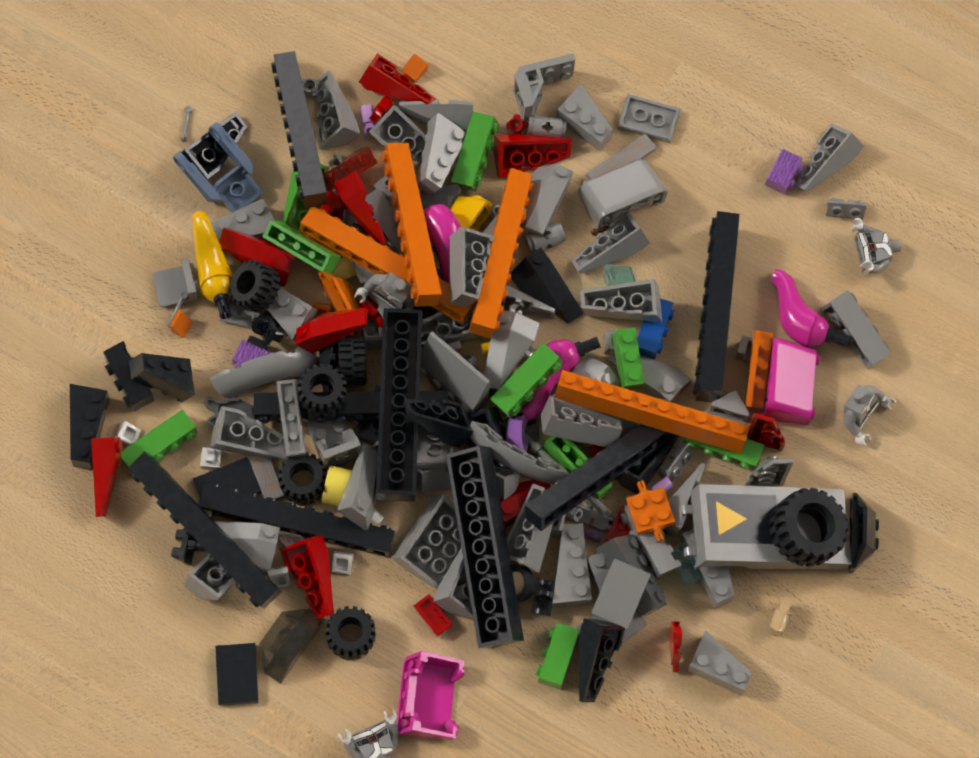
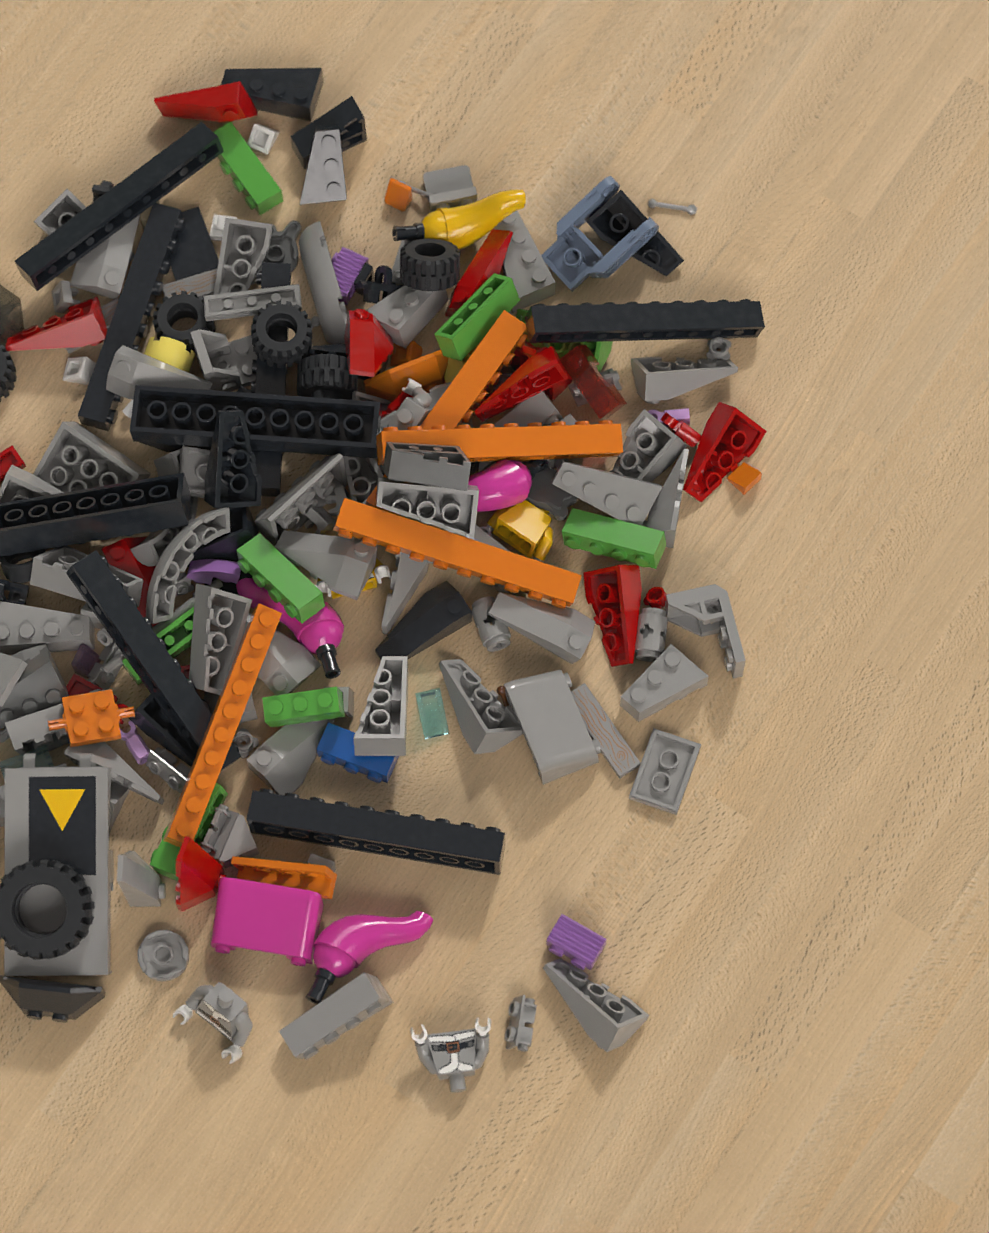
camera: 100 degrees right, 0 degrees up
(445, 259) = (427, 465): none -> dark grey wedge
(819, 457) = (163, 955): none -> light grey tile

